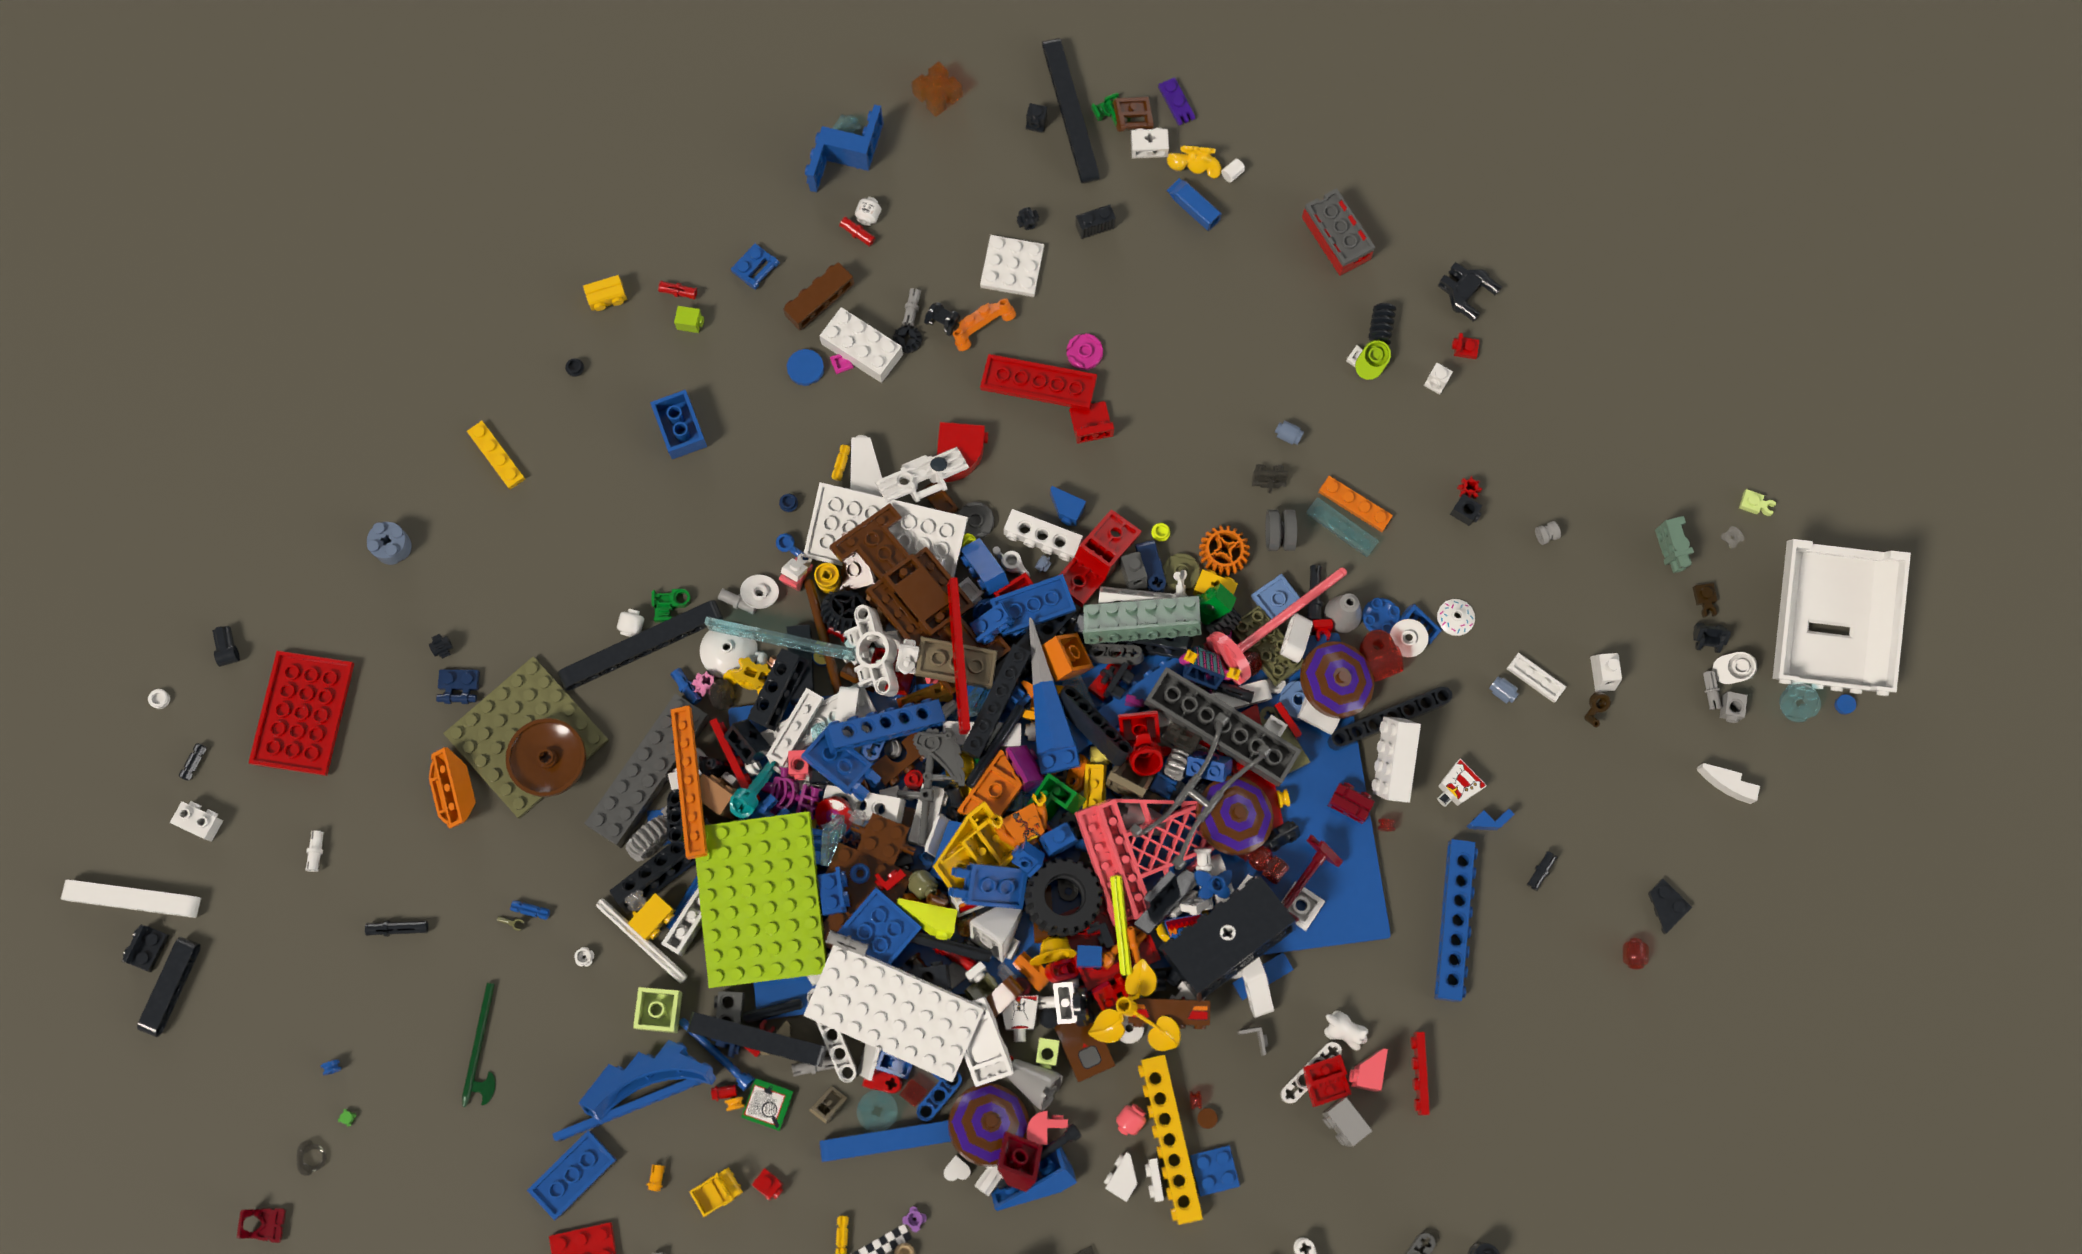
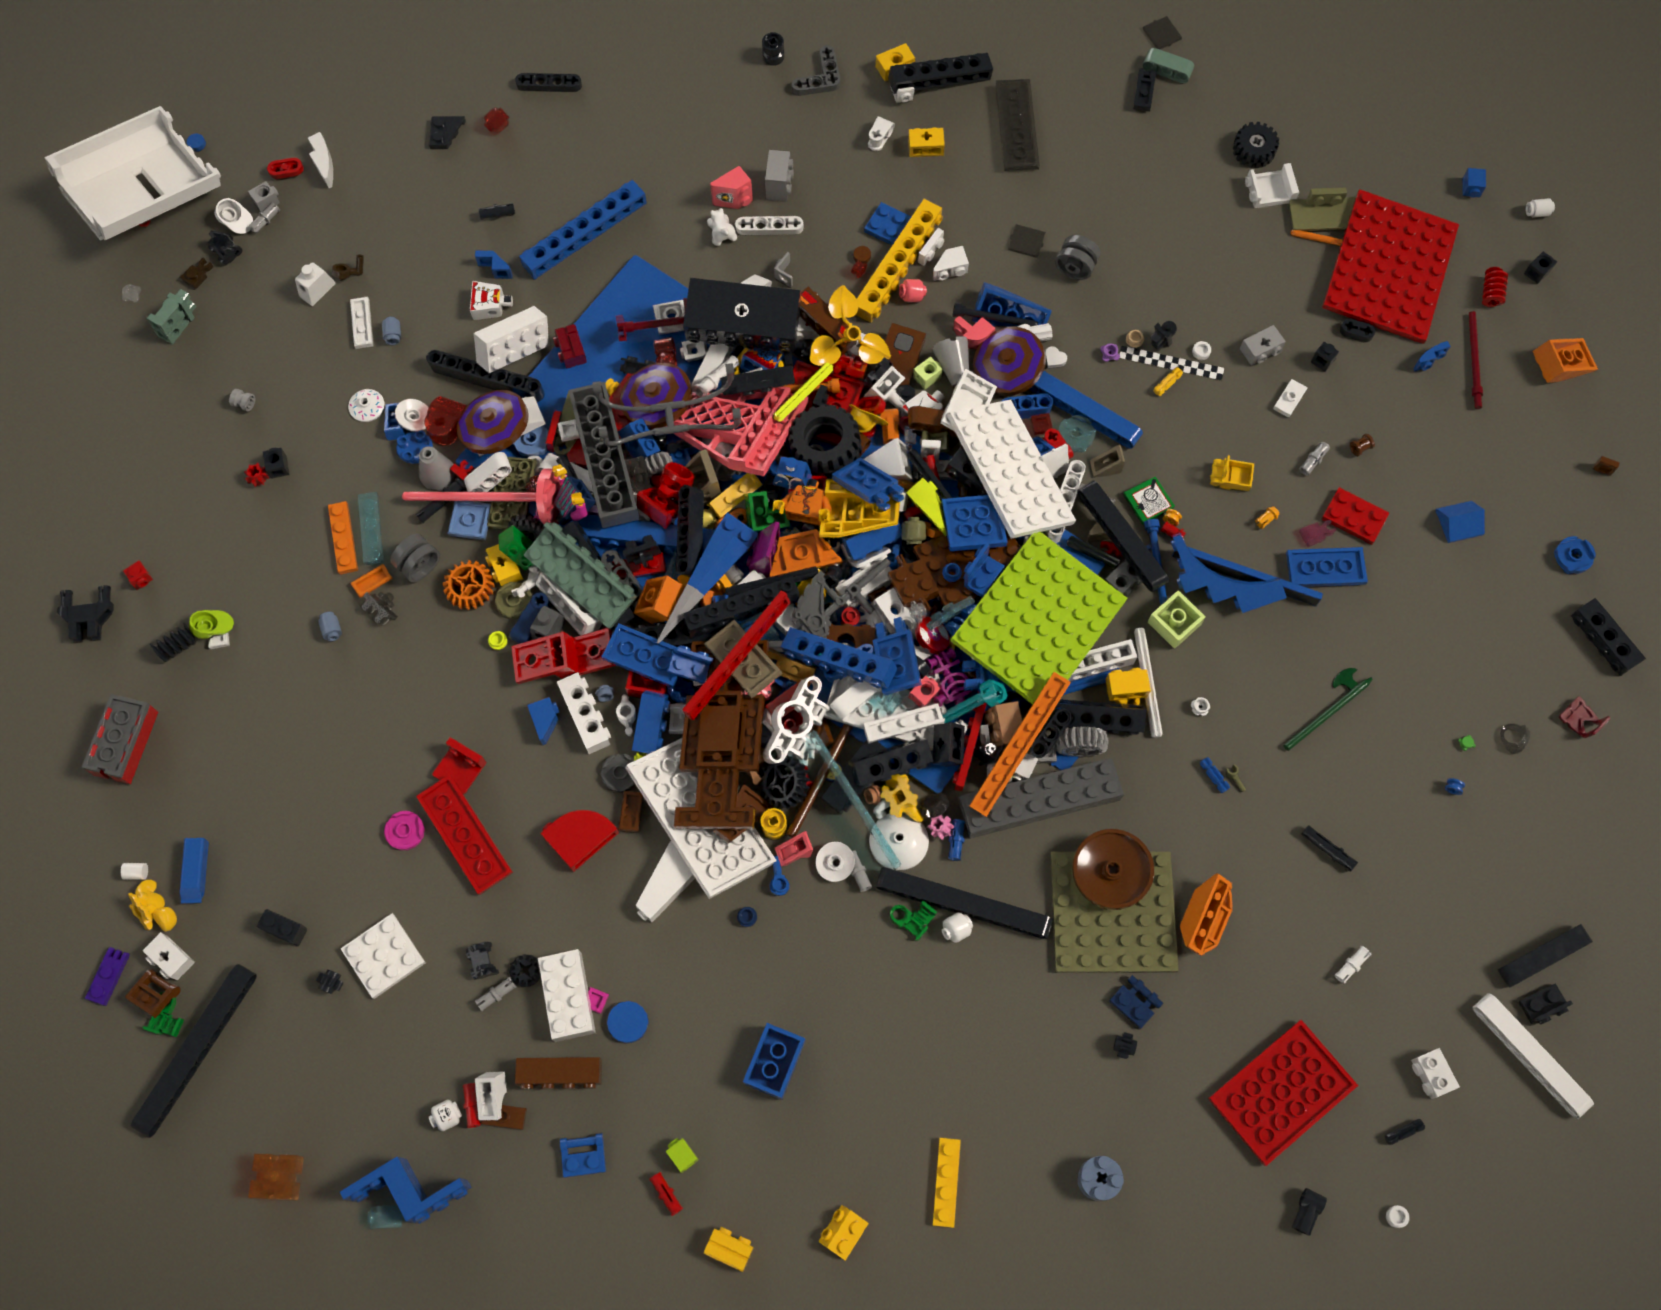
camera: 135 degrees left, 5 degrees down
(539, 366) = (843, 1232): none -> yellow bracket
(574, 367) = (814, 1203): black plate -> none
(605, 1201) = (1315, 534): none -> clear pink plate
(635, 900) = (1131, 701): clear plate -> none
(768, 1185) = (1191, 450): red bracket -> none
(796, 569) = (792, 849): white plate -> none
(830, 244) = (511, 1118): none -> reddish brown plate
(840, 463) = (676, 912): yellow axle -> none
(847, 943) = (1005, 526): light grey pin -> none
(850, 245) = (490, 1094): none -> white arch
(893, 879) = (934, 546): red bracket -> none
(907, 657) = (775, 690): white hips -> none
(920, 469) = (626, 839): white piece -> none
(938, 900) = (912, 510): reddish brown arm -> none
(979, 319) = (455, 931): orange plate -> none
(1019, 1161) = (1009, 315): dark red slope -> none
(1028, 858) = (825, 476): blue brick -> none
(1036, 118) = (228, 1068): black brick -> none
(1089, 956) = (845, 394): blue panel -> none
(1133, 702) = (645, 526): magenta tile -> none
(1134, 942) = (800, 380): orange piece -> none
(1194, 905) = (742, 363): white plate -> none
(1213, 884) = (715, 364): blue animal -> none
(1298, 491) = (371, 580): none -> orange tile
(1326, 1080) = (765, 209): red slope -> none
(1386, 825) = (562, 318): clear red bush -> none
(1419, 1064) = (702, 167): red plate -> none
(1438, 378) = (183, 568): white brick -> none
(1639, 1038) = (548, 85): none -> black beam
(1747, 748) = (285, 168): none -> red plate
(1754, 502) = (90, 301): yellowish green plate -> none
(1804, 711) = (225, 163): clear light blue plate -> none

